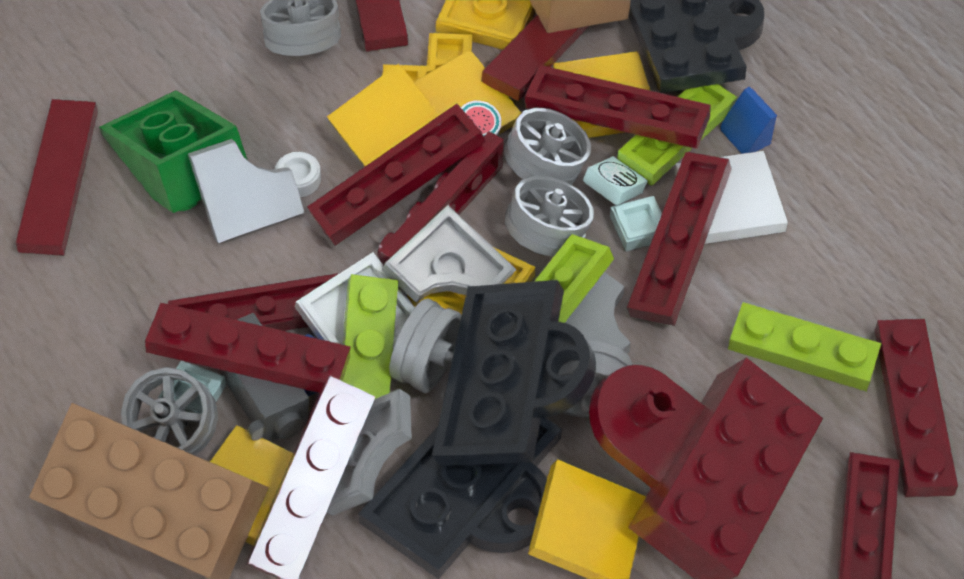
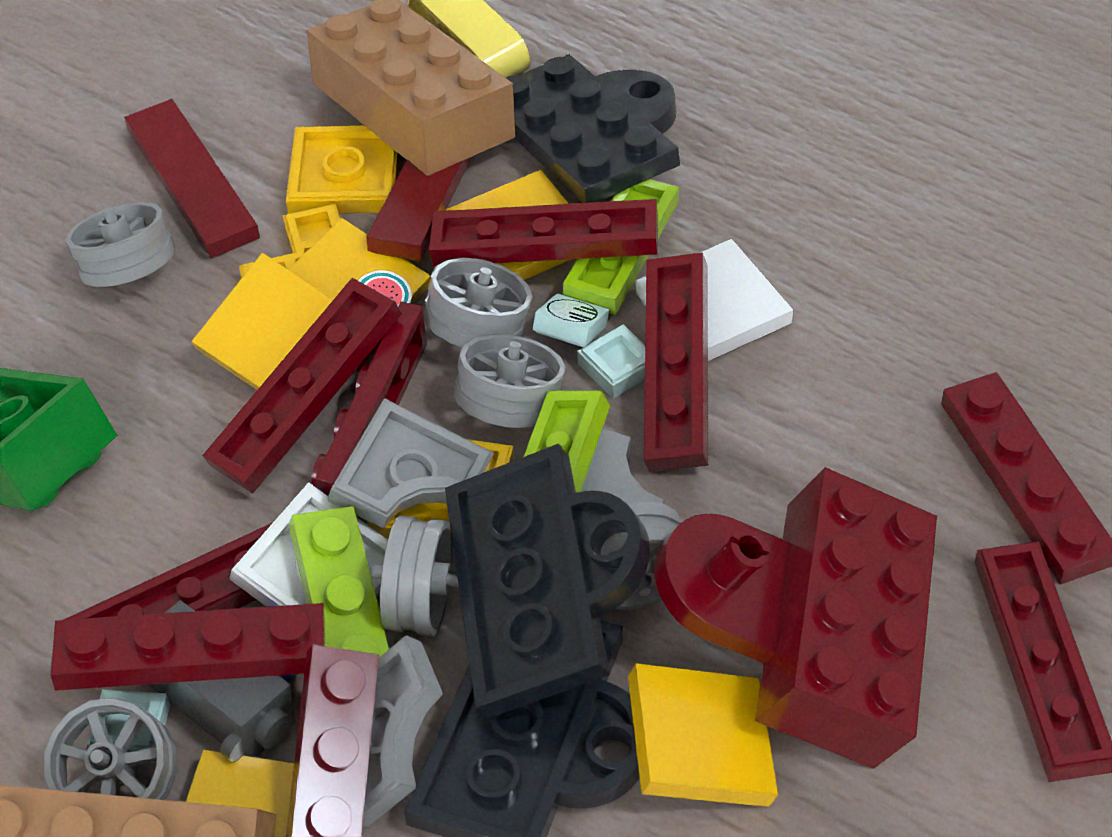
camera: 15 degrees left, 5 degrees down
(241, 194) = (113, 462): tile -> none
(305, 171) = (176, 422): white tile -> none
(749, 123) = (703, 212): blue slope -> none
(804, 346) = (870, 444): lime plate -> none

